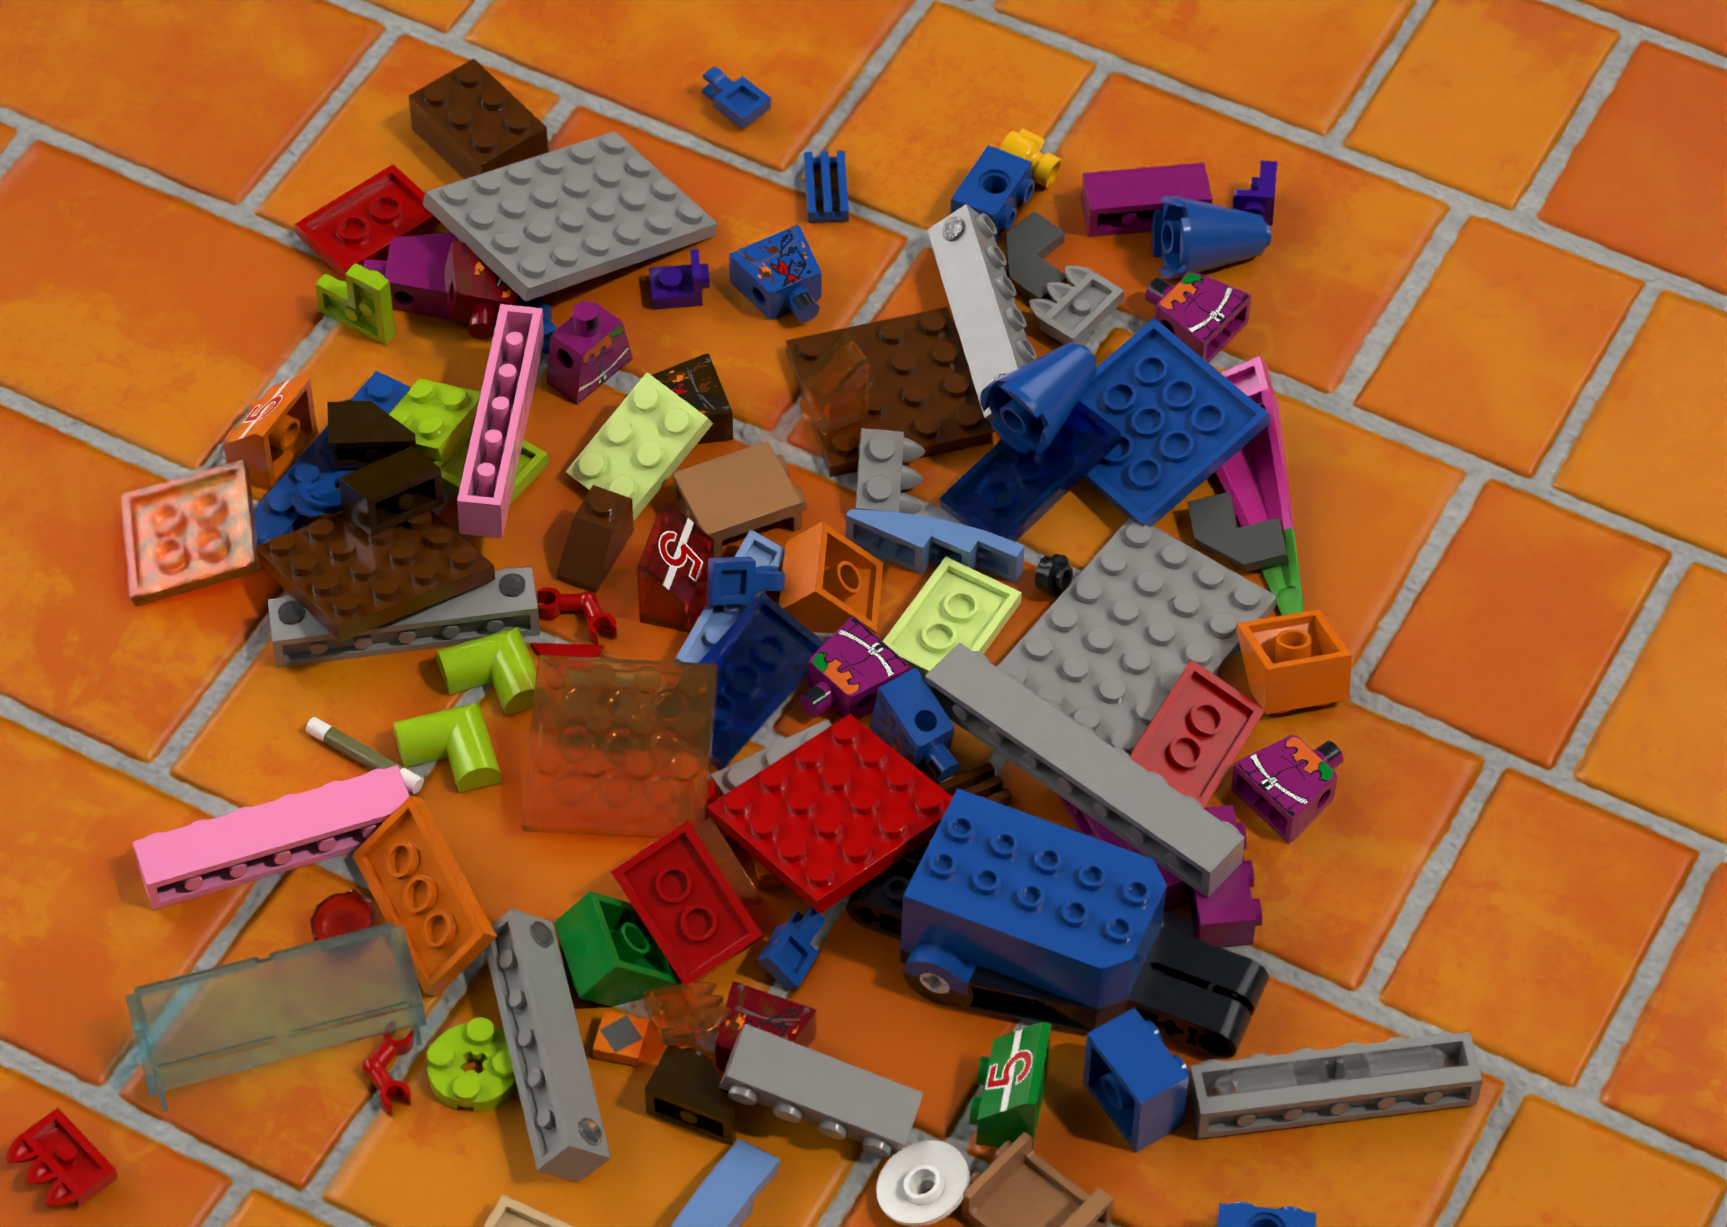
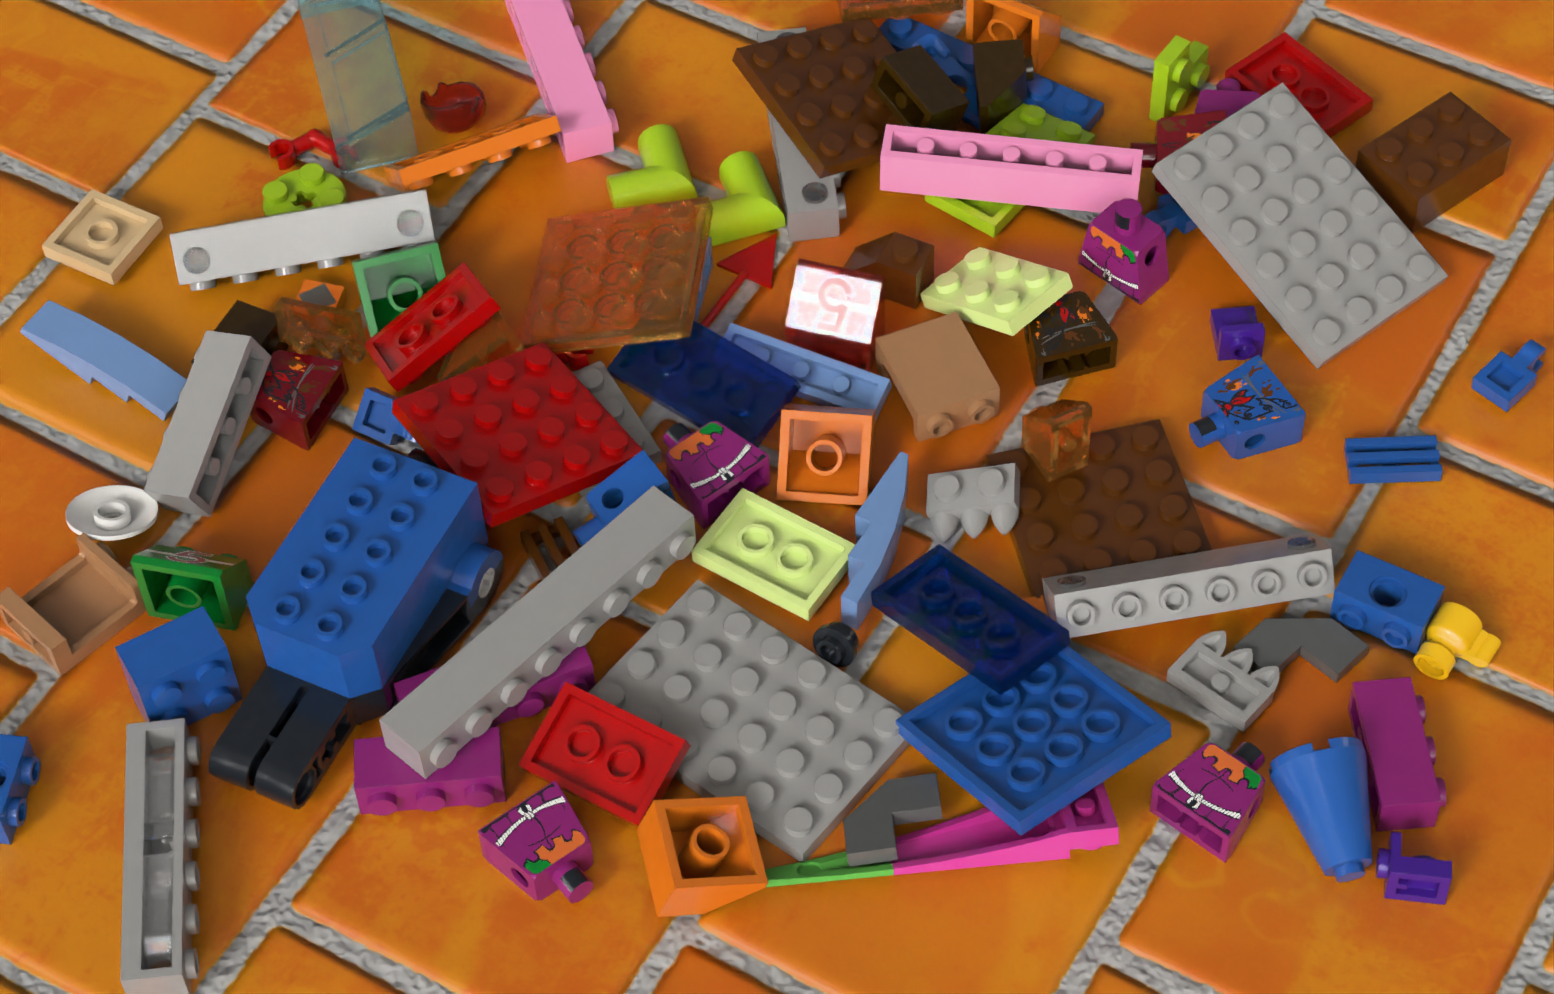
camera: 95 degrees right, 0 degrees up
(360, 752) = (649, 118): olive bar -> none
(583, 602) = (819, 253): red arm -> none
(736, 578) = (809, 359): blue plate -> none
(1039, 397) = (1029, 594): blue cone -> none

